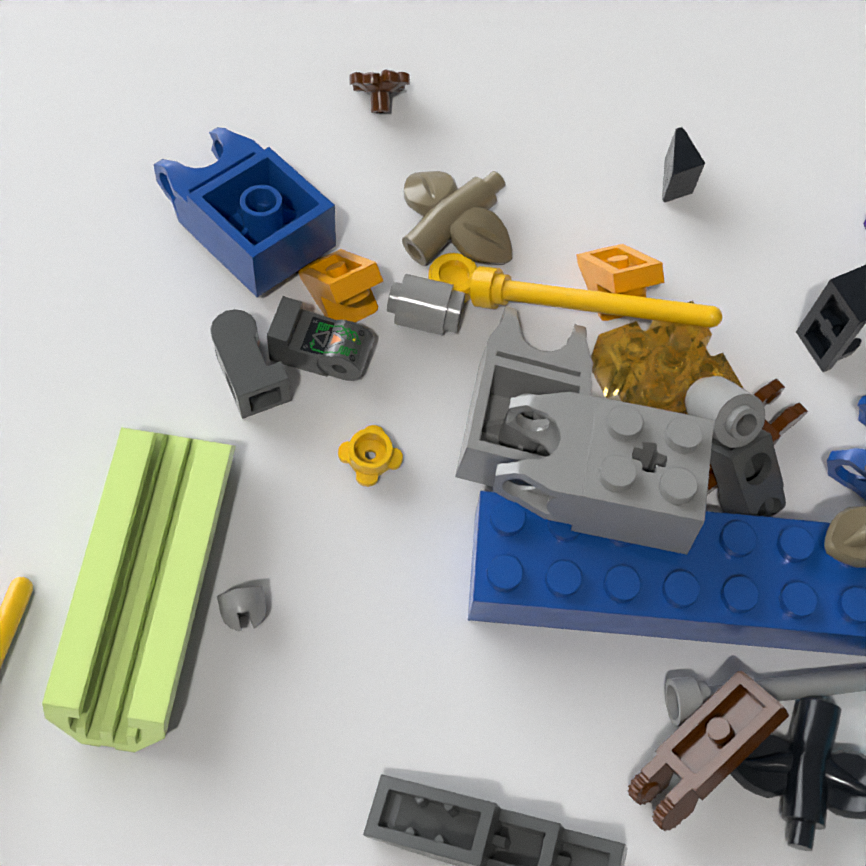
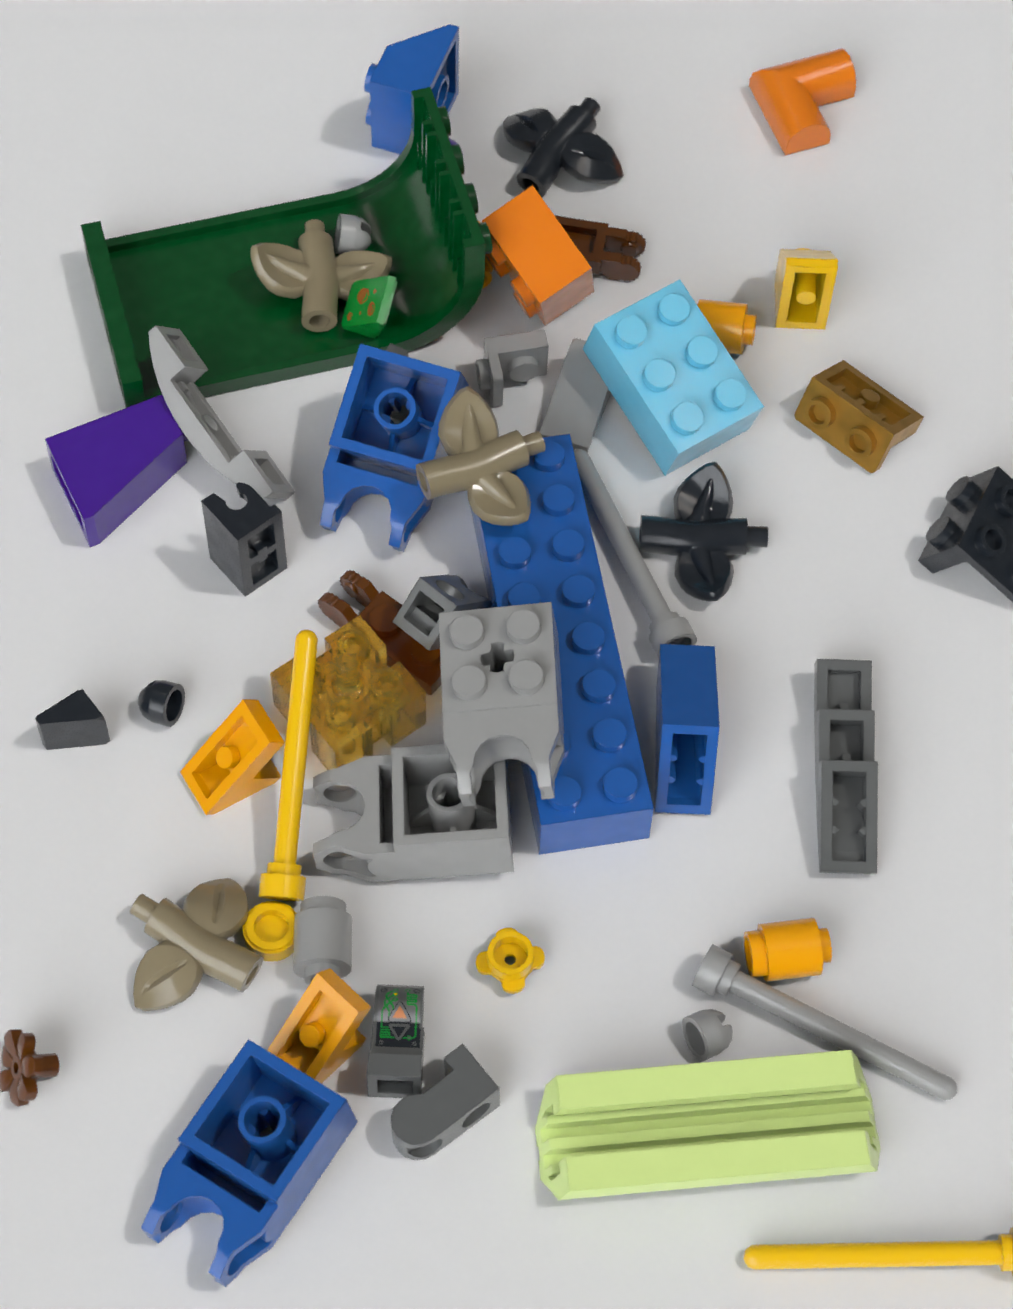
camera: 100 degrees left, 5 degrees down
(297, 636) = (722, 975): none -> light grey piece
(300, 706) = (787, 949): none -> light orange brick
(575, 675) = (686, 729): none -> blue slope
(693, 247) = (162, 702): none -> black hinge
(707, 748) = (711, 605): hinge -> none
(735, 411) = (405, 618): light grey brick -> none

